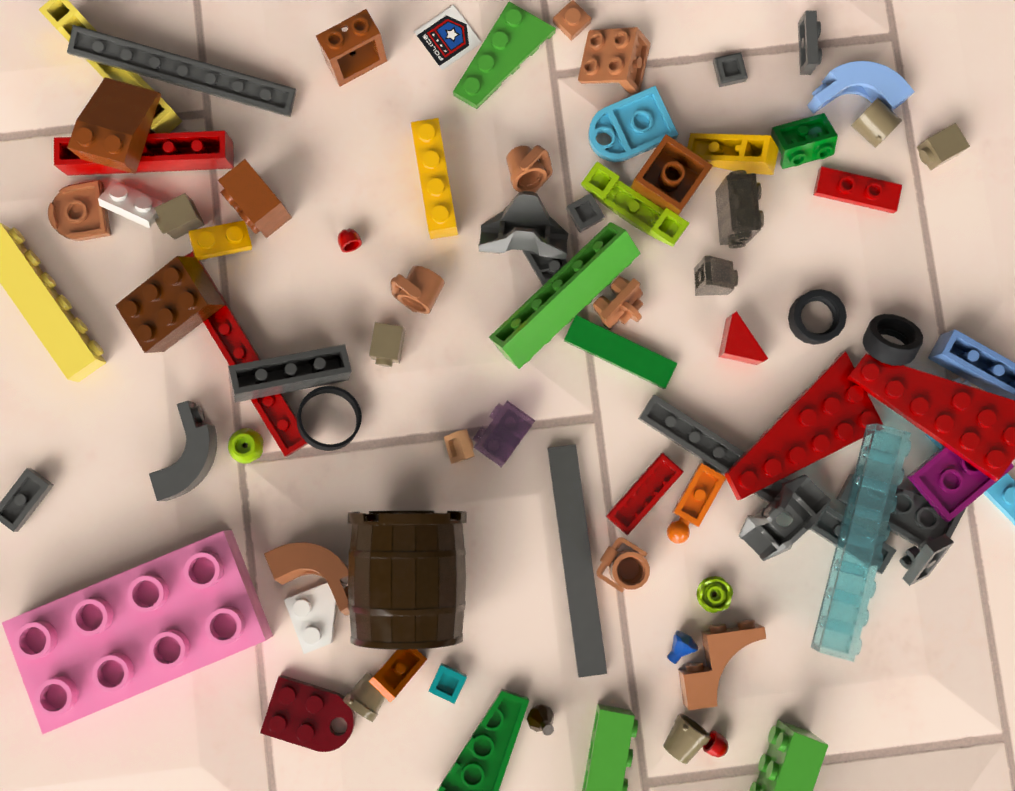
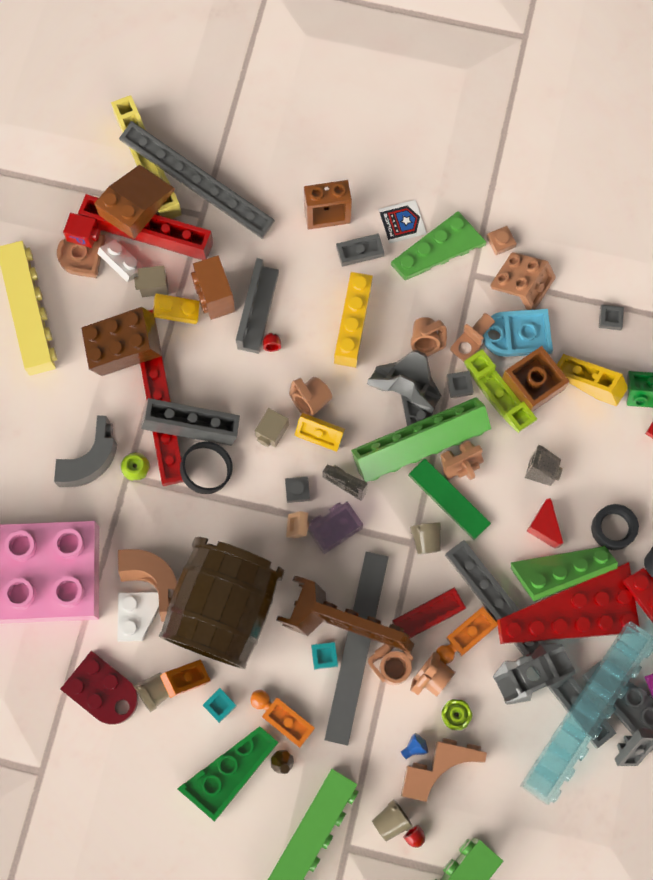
camera: 25 degrees right, 10 degrees down
(67, 184) = (81, 230): none -> red brick
(315, 204) = (257, 307): none -> dark grey fence
(411, 90) = (360, 250): none -> dark grey plate
(443, 404) = (297, 489): none -> dark grey plate
(444, 328) = (319, 432): none -> yellow plate
(503, 377) = (345, 481): none -> clear smoke wing
(513, 537) = (313, 609): none -> reddish brown hinge
(523, 670) = (282, 717): none -> orange plate
(544, 584) = (324, 656): none -> teal plate
(581, 150) = (473, 336): none -> nougat bracket
(611, 407) = (427, 537): none -> dark tan piece
(673, 562) = (432, 676): none -> nougat piece
(738, 209) = (579, 421): clear smoke brick -> none
(774, 391) = (558, 572): none -> bright green wing

